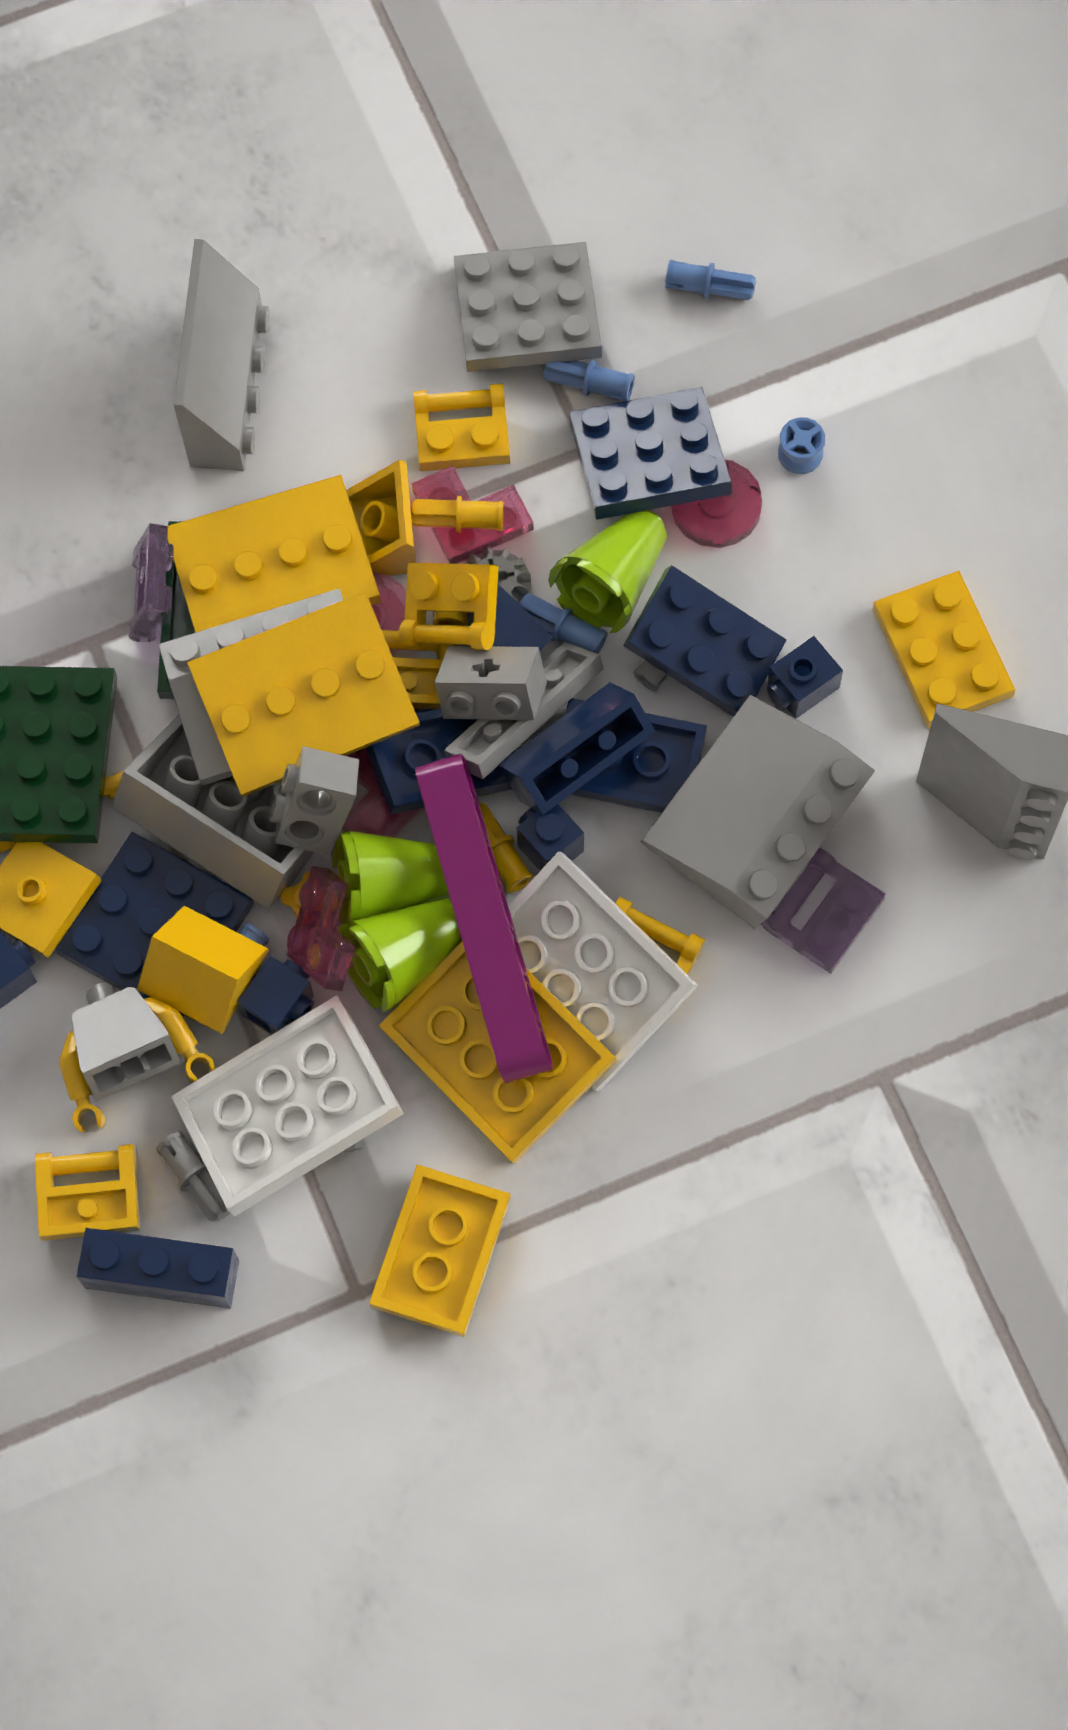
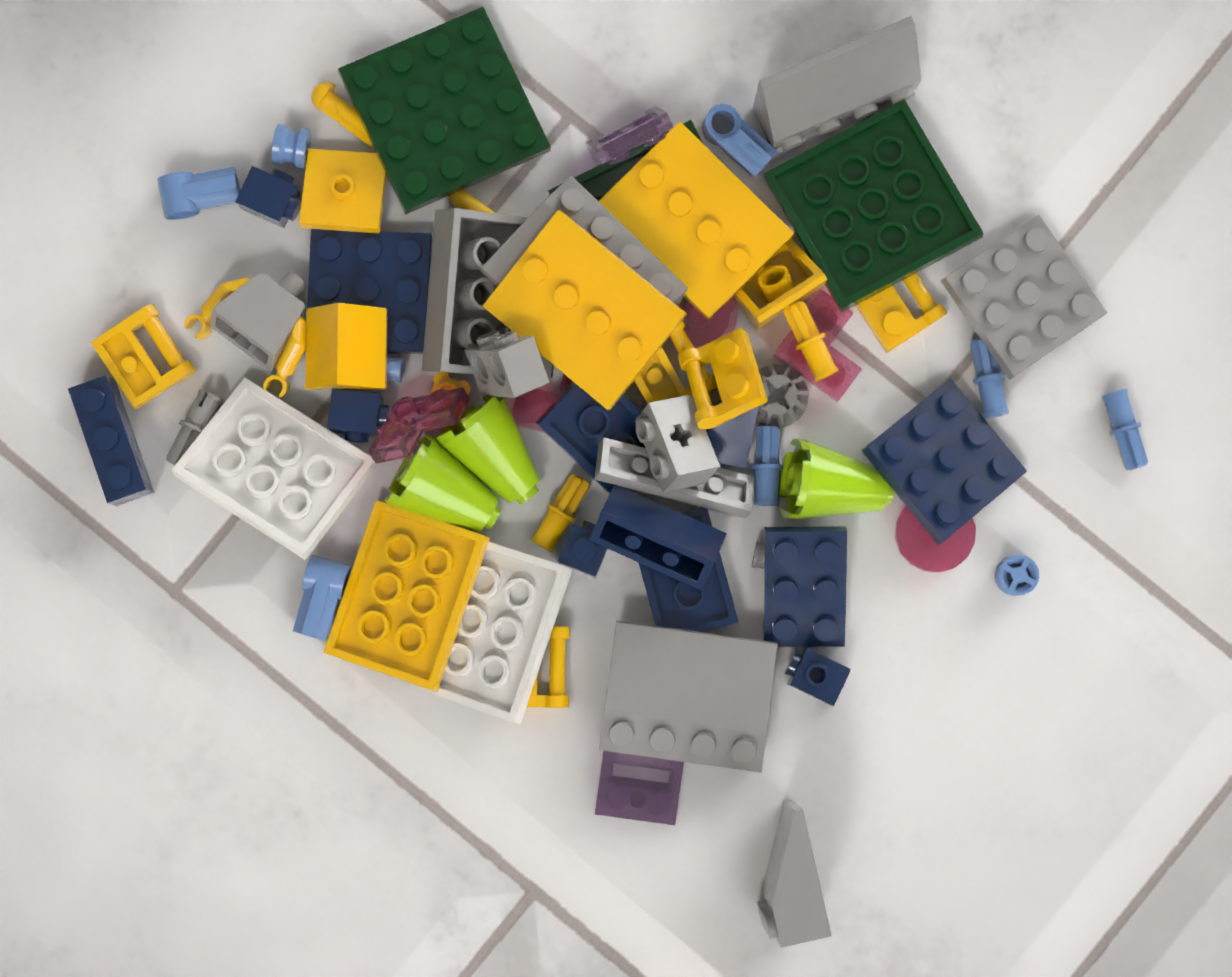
camera: 60 degrees right, 15 degrees up
(217, 488) = (742, 143): none -> medium blue piece
(355, 394) = (873, 205): none -> dark green plate
(440, 1250) = (230, 635): yellow plate -> none
(441, 1124) = (323, 588): none -> medium blue piece
(484, 919) = (485, 538): magenta beam -> none
(943, 647) = (902, 770): yellow plate -> none

